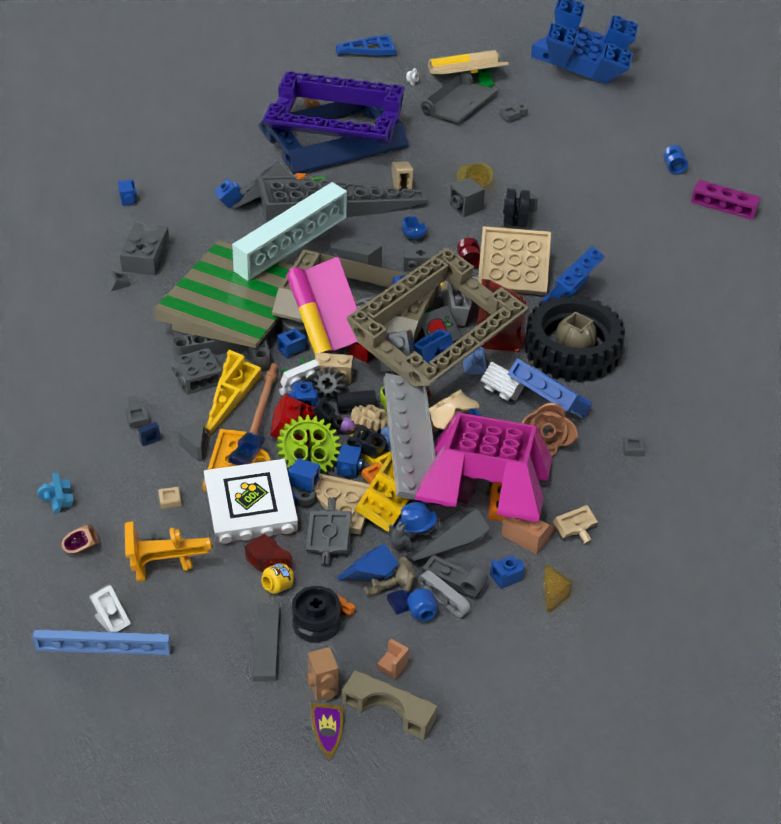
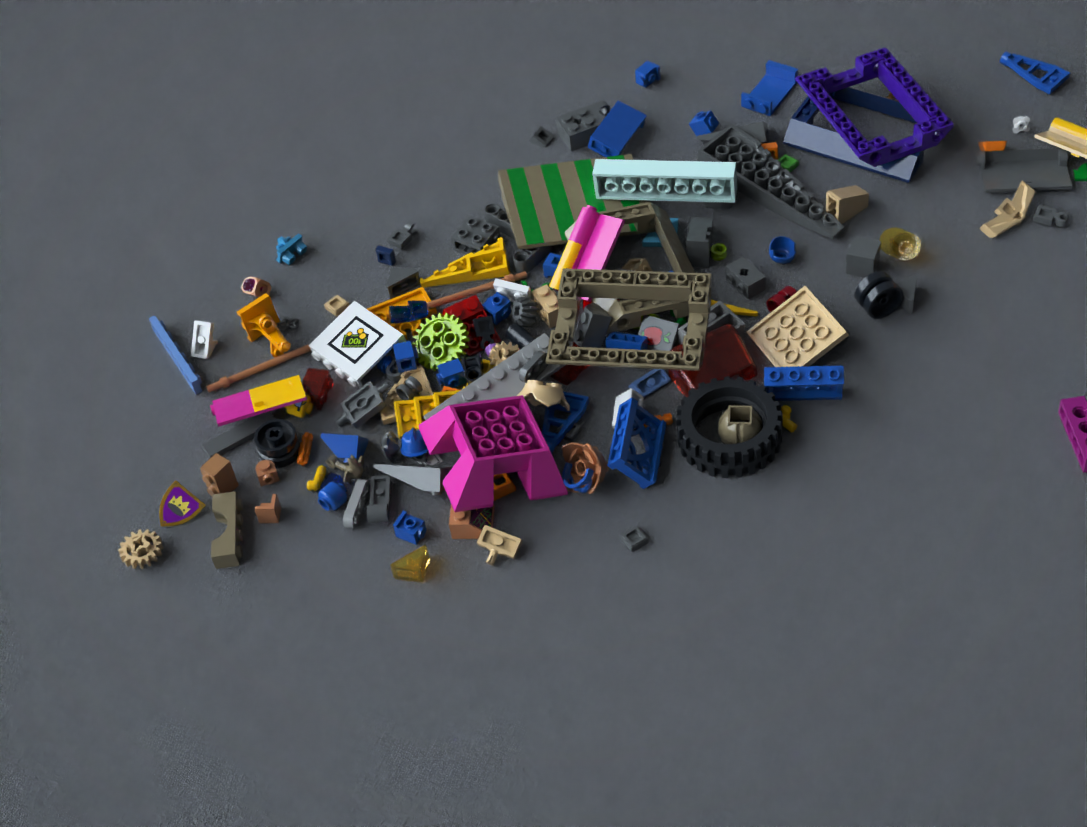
camera: 65 degrees right, 5 degrees up
(180, 234) = (616, 130): none -> blue panel
(183, 619) = (225, 382): none -> nougat bar
(227, 149) = (771, 89): none -> blue panel
(251, 600) = (258, 400): none -> door
(342, 641) = (266, 472): none -> nougat plate
(349, 490) = (409, 389): none -> dark grey wheel
(352, 786) = (140, 549): none -> tan gear
(388, 611) = (318, 479): none -> yellow arm
(420, 402) = (533, 367): none -> dark grey plate
(423, 94) = (992, 145): none -> orange piece
(491, 122) = (1010, 212): none -> tan plate
(565, 443) = (587, 479): none -> blue helmet

